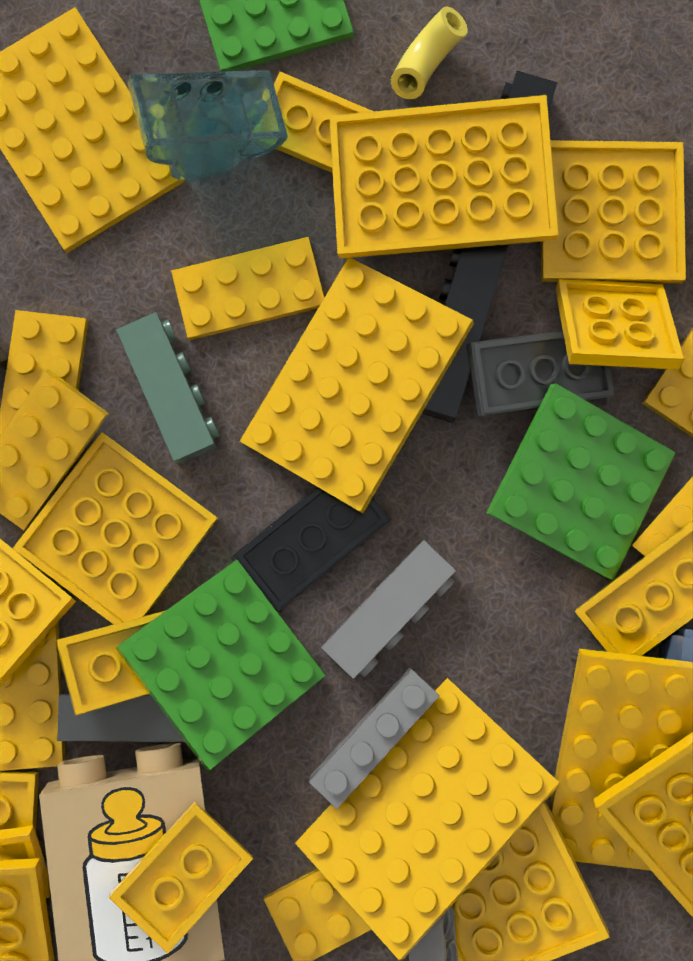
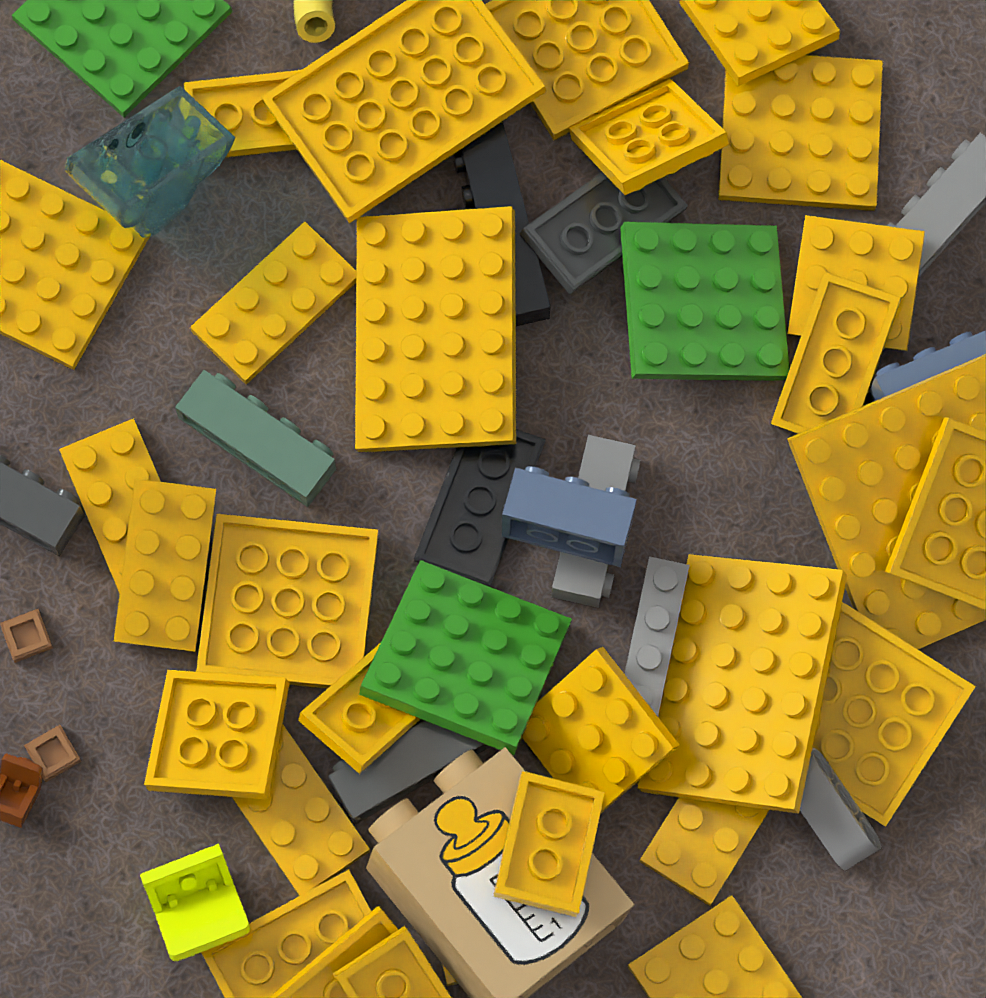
camera: 30 degrees left, 10 degrees down
(287, 789) = (598, 730): none -> yellow plate
(365, 606) = (568, 516): none -> sand blue brick

